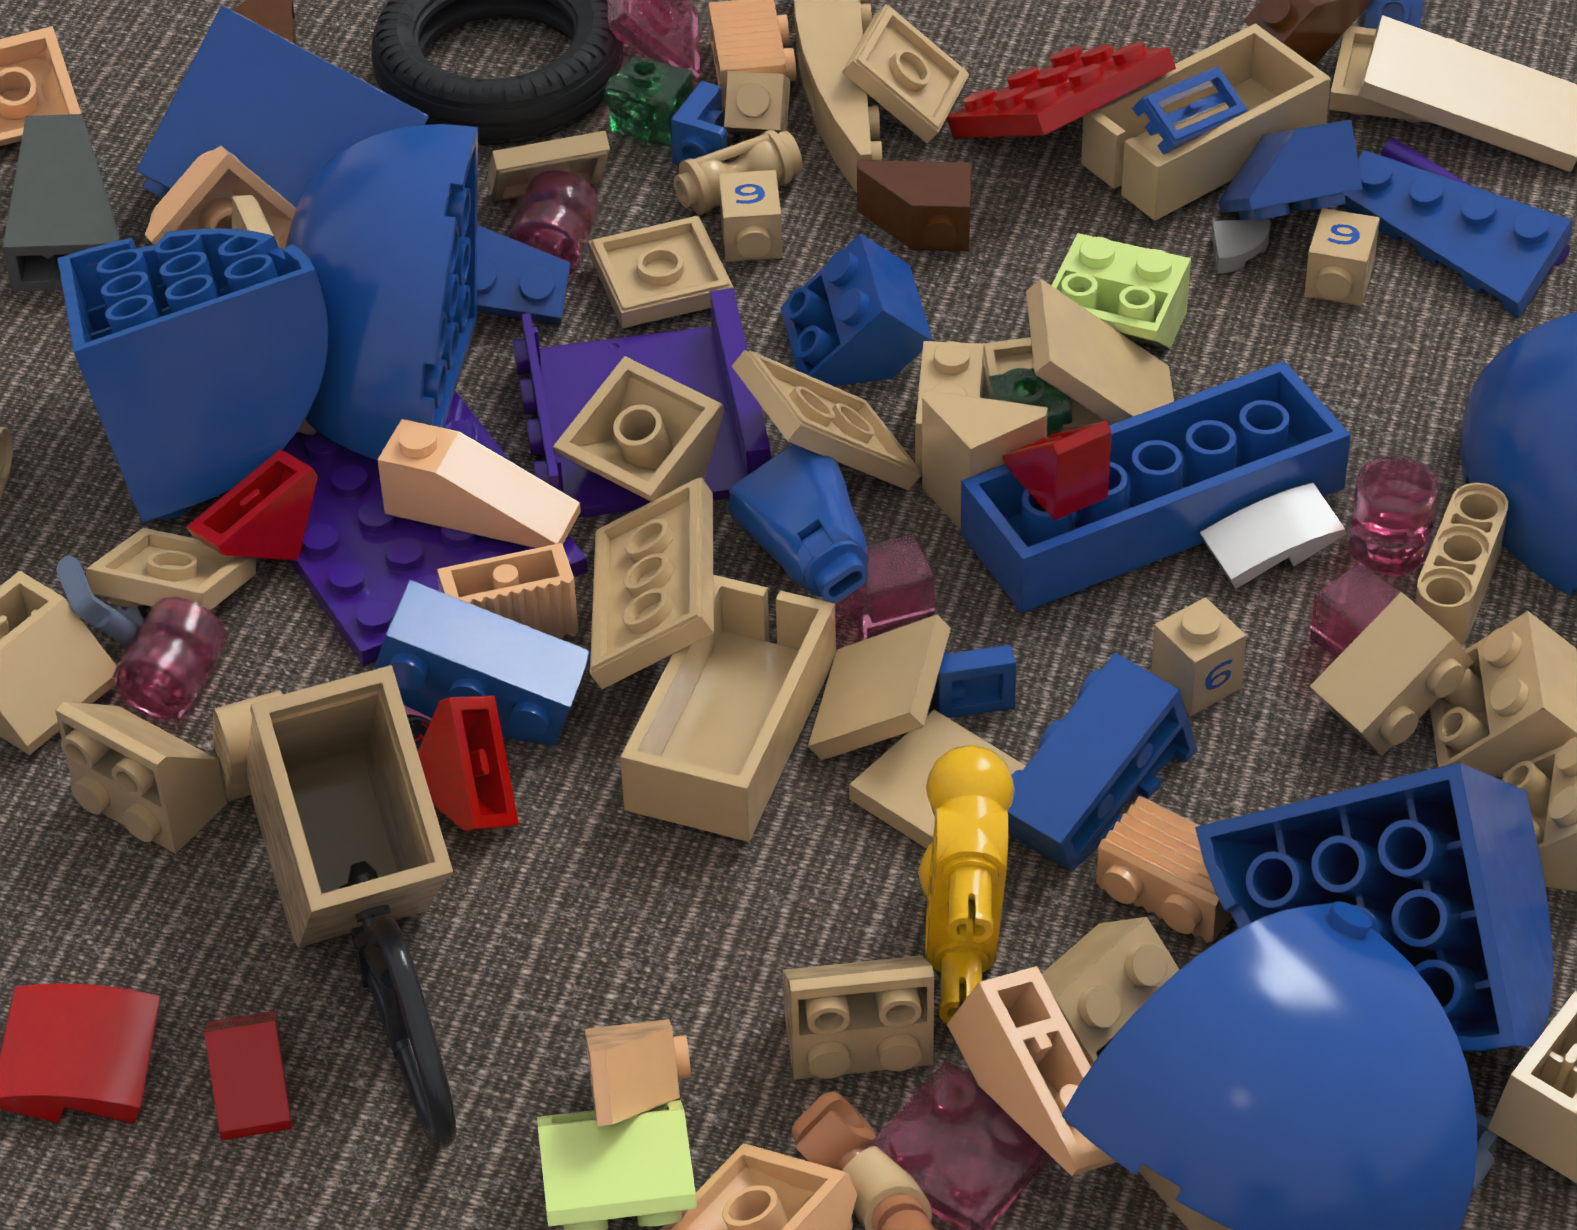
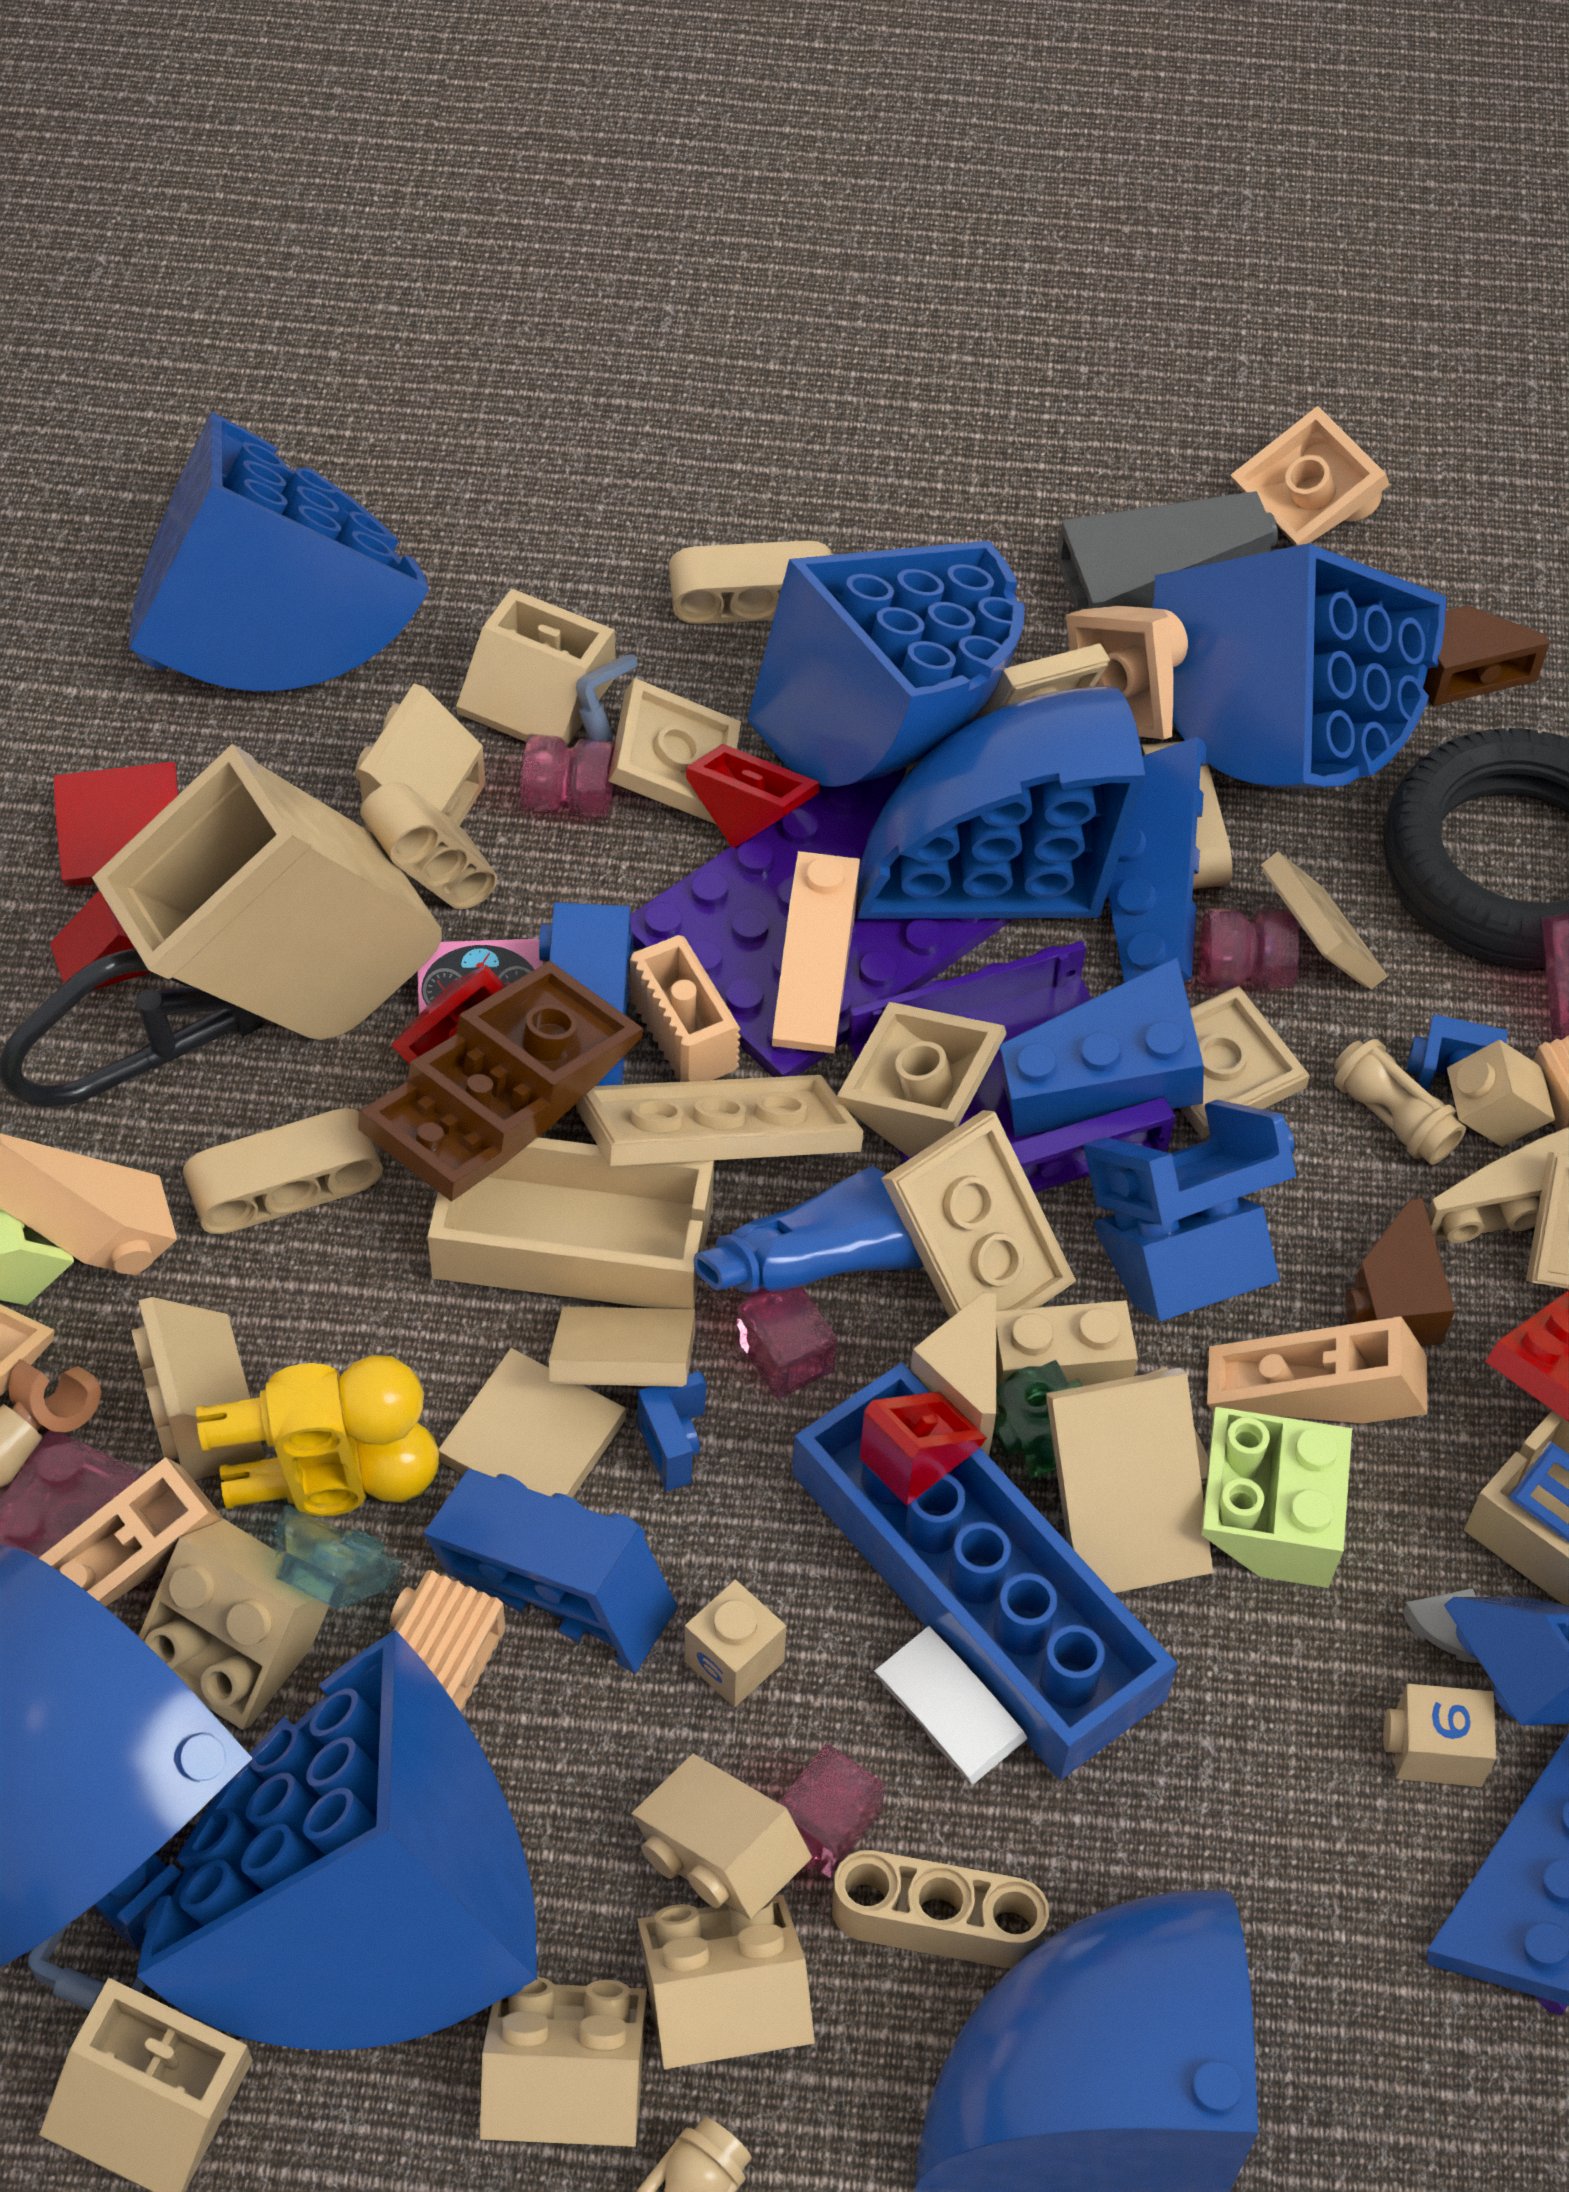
camera: 75 degrees right, 10 degrees up
(586, 704) = (499, 1079): none -> reddish brown slope
(597, 939) = (281, 1171): none -> tan beam
(646, 99) = (1478, 987): clear green brick -> none
(657, 297) = (1106, 1056): none -> blue wedge
(750, 215) = (1329, 1123): tan brick -> none
(794, 277) = (1243, 1155): none -> blue panel
(1001, 259) = (1324, 1374): none -> light nougat slope
(1073, 918) = (331, 1563): none -> clear light blue wing
(1393, 515) = (993, 1819): clear pink wheel -> none

